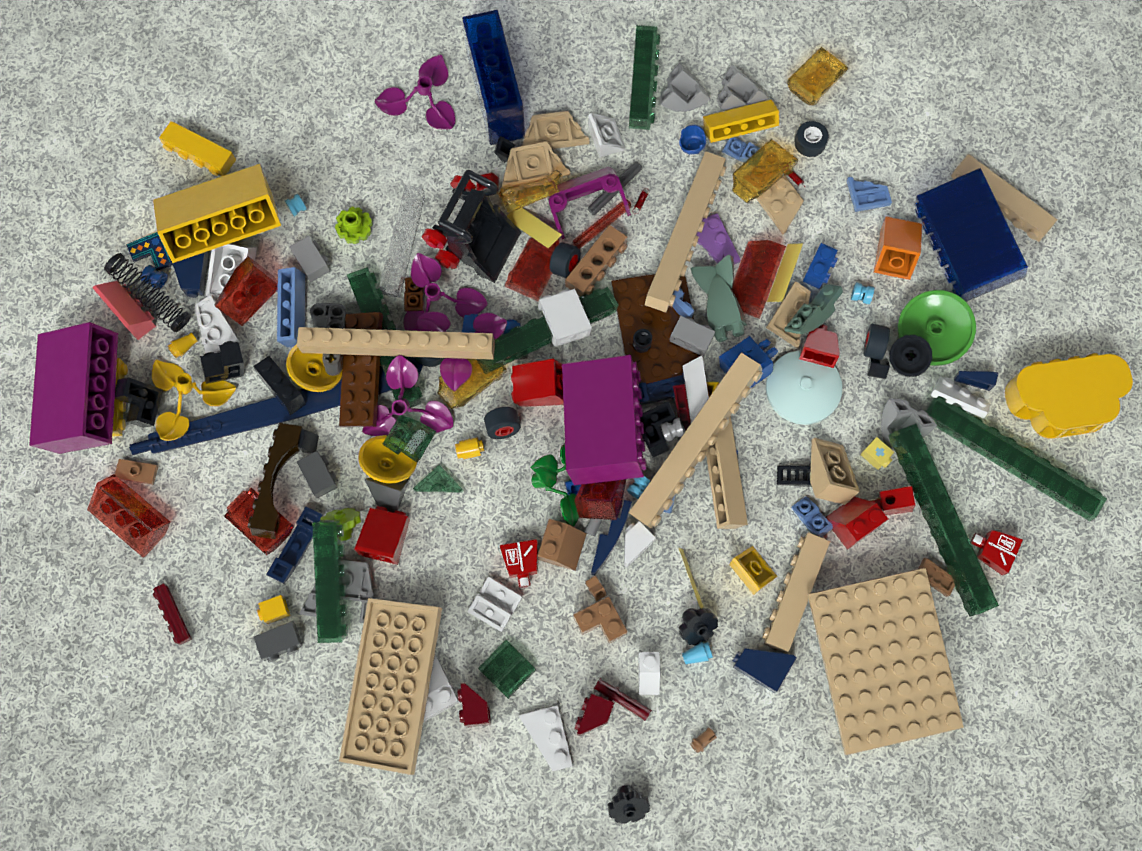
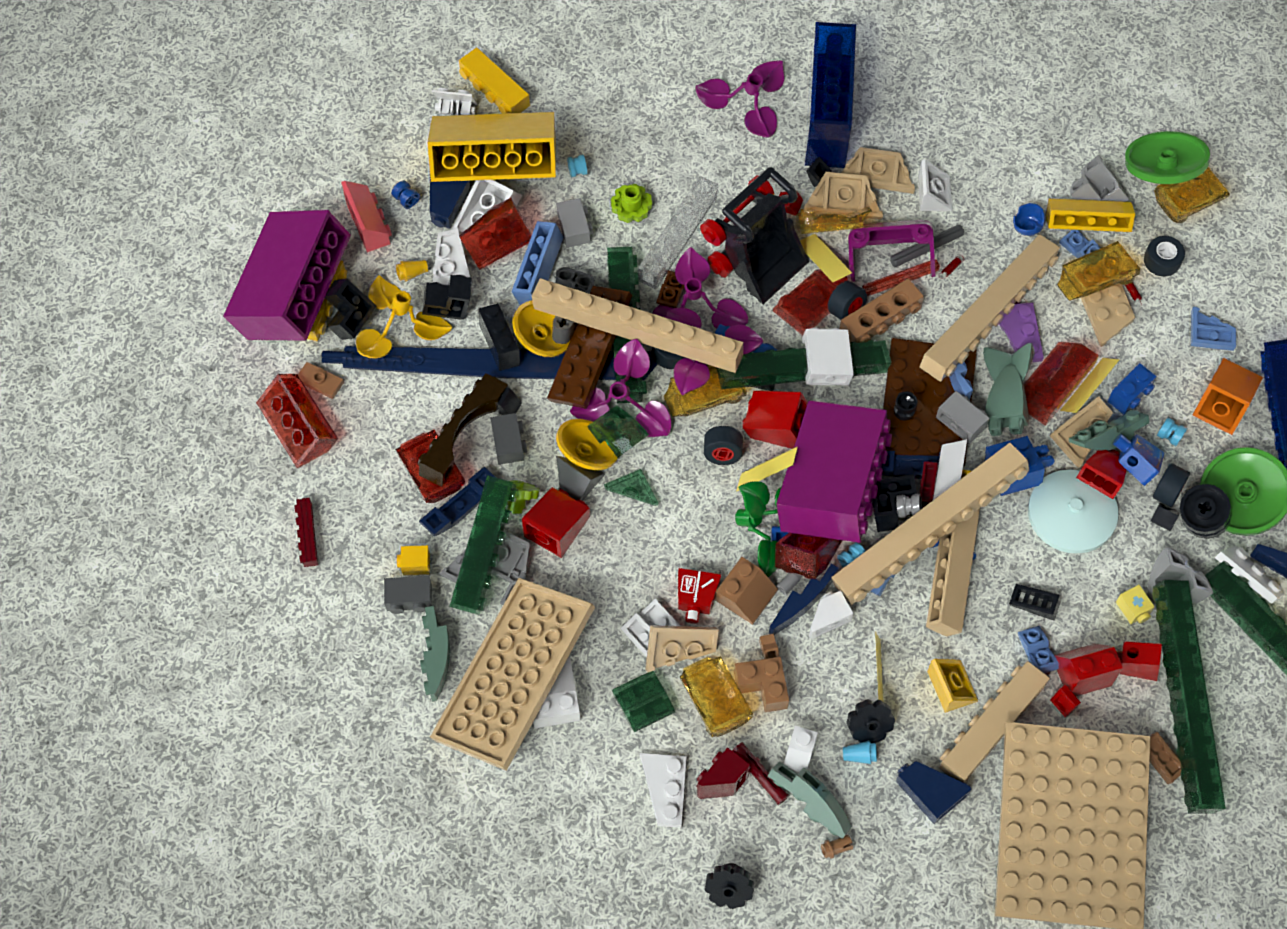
camera: 20 degrees right, 10 degrees down
(150, 246) = (414, 164): dark blue tile -> none
(173, 172) = (446, 97): none -> white hinge
(175, 327) = (412, 244): black piece -> none
(323, 693) = (438, 654): none -> sand green slope
(469, 448) = (679, 462): yellow brick -> none
(475, 709) = (594, 728): dark red slope -> none
(518, 611) = (678, 643): none -> tan wing
(546, 435) = (768, 468): none -> light yellow sticker
(564, 644) = (716, 696): none -> clear yellow slope
(643, 77) = (994, 143): clear green brick -> none
(678, 708) = (821, 803): none -> sand green slope
(683, 91) = (1035, 168): light grey brick -> none
(789, 50) = (1167, 157): none -> bright green dish
(831, 472) = (1075, 607): tan slope -> none
(845, 326) = (1139, 457): none -> blue torso
(847, 555) = (1065, 701): none -> red tile
(997, 550) = (1243, 750): red torso -> none

